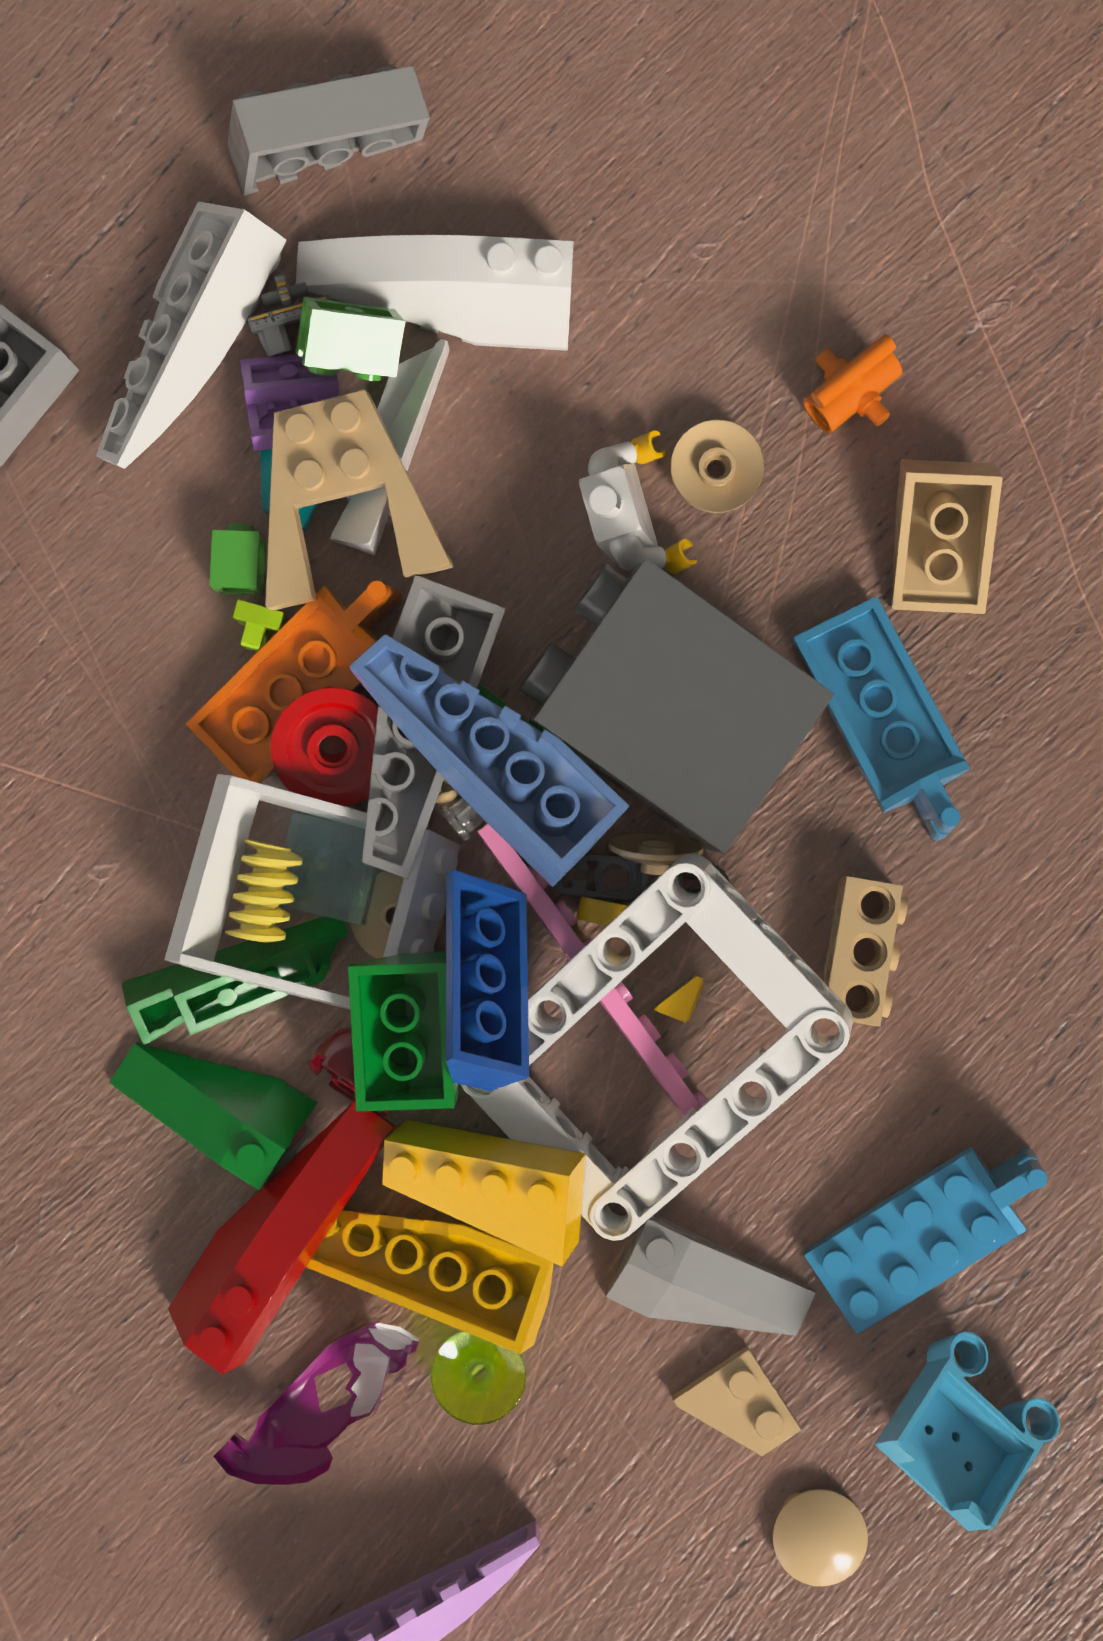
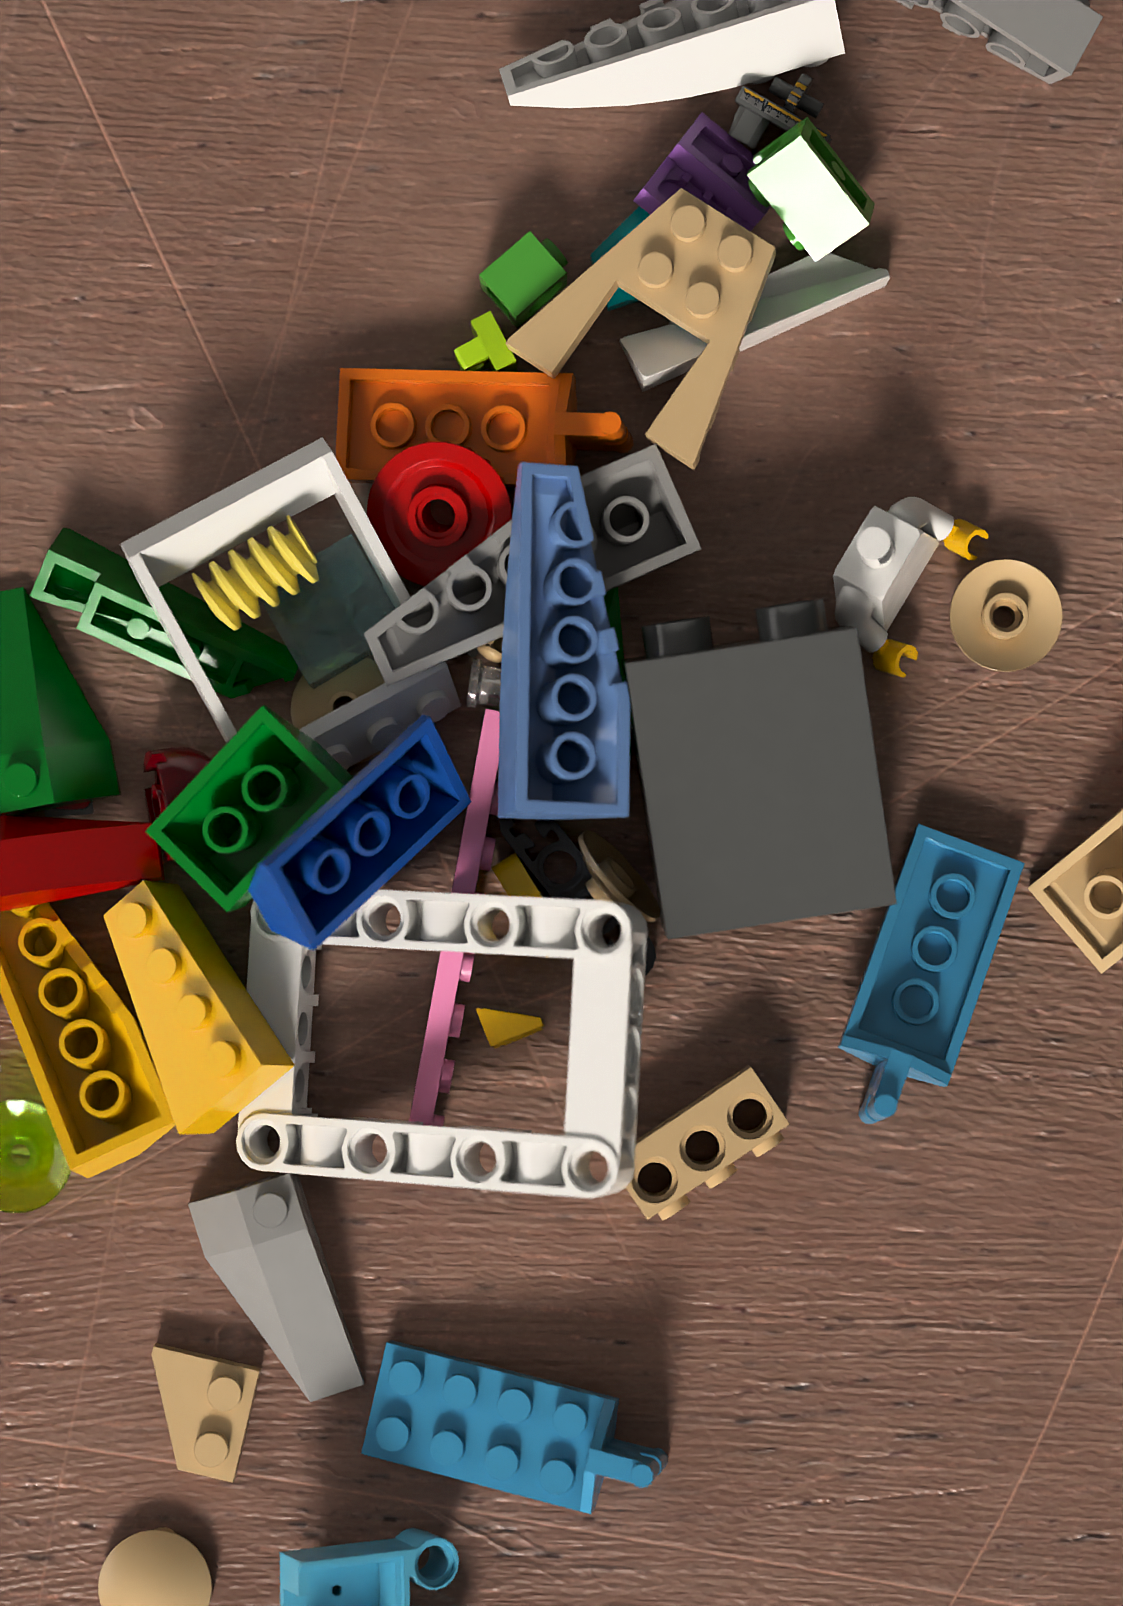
camera: 50 degrees right, 0 degrees up
(452, 284) = (948, 238): white wedge -> none

